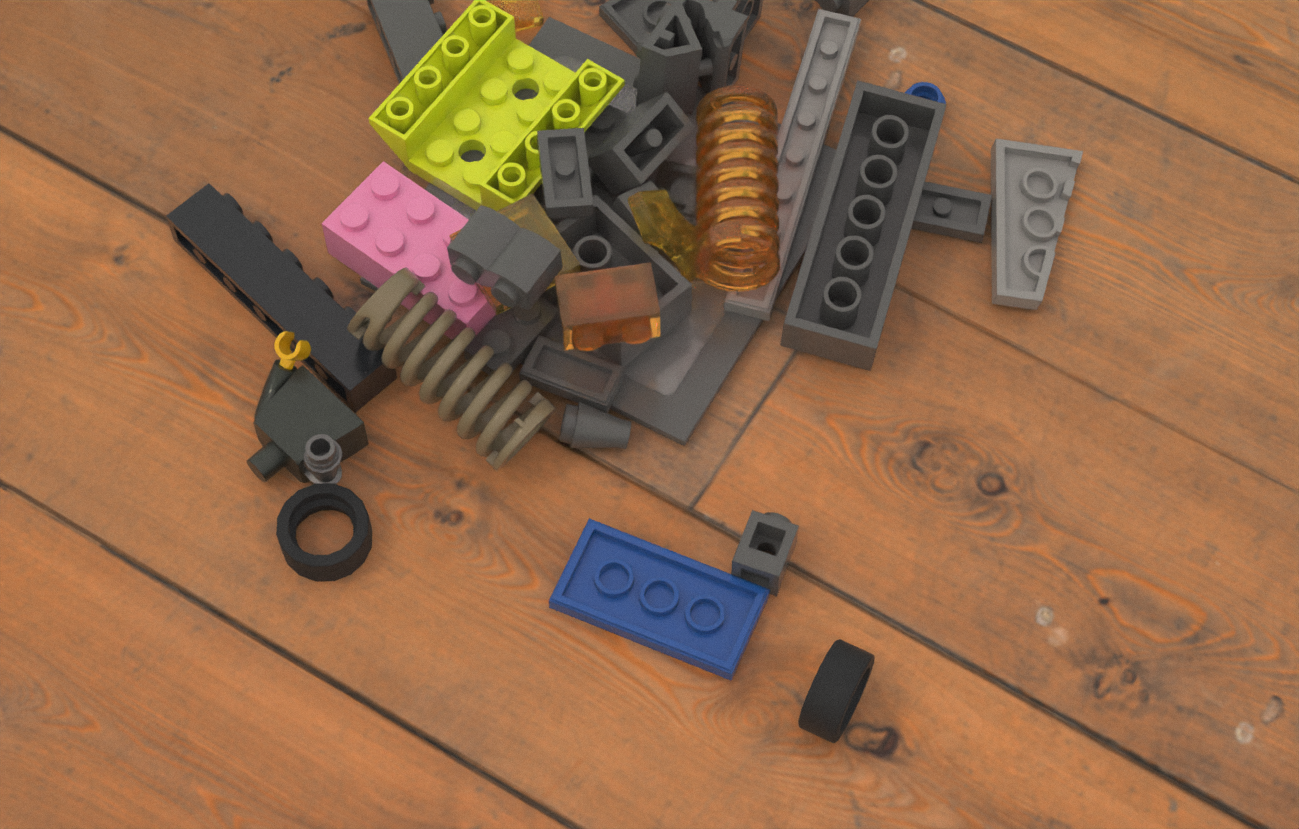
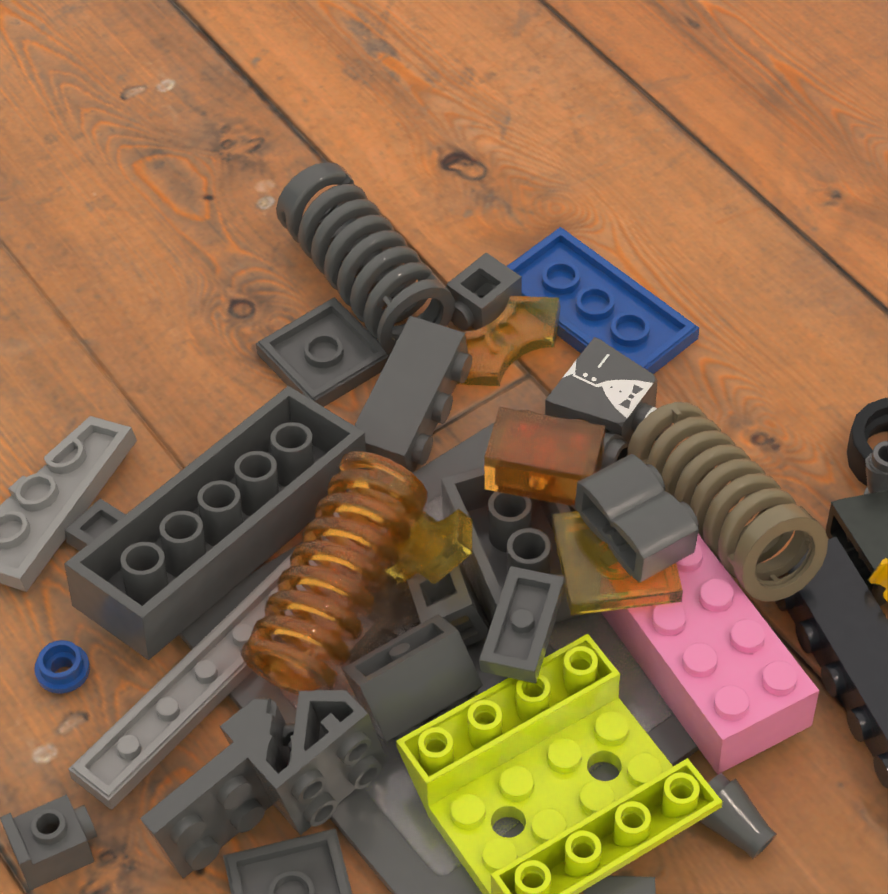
camera: 155 degrees left, 10 degrees down
(361, 162) = (738, 818): none -> dark grey cone
(600, 478) = (605, 391): none -> dark grey torso
(711, 532) = (520, 328): none -> clear yellow tile
(772, 409) = (414, 392): none -> dark grey brick
(836, 691) = (469, 153): black tyre -> none
(884, 454) = (323, 353): none -> dark grey tile
(963, 591) = (363, 241): none -> dark grey piece

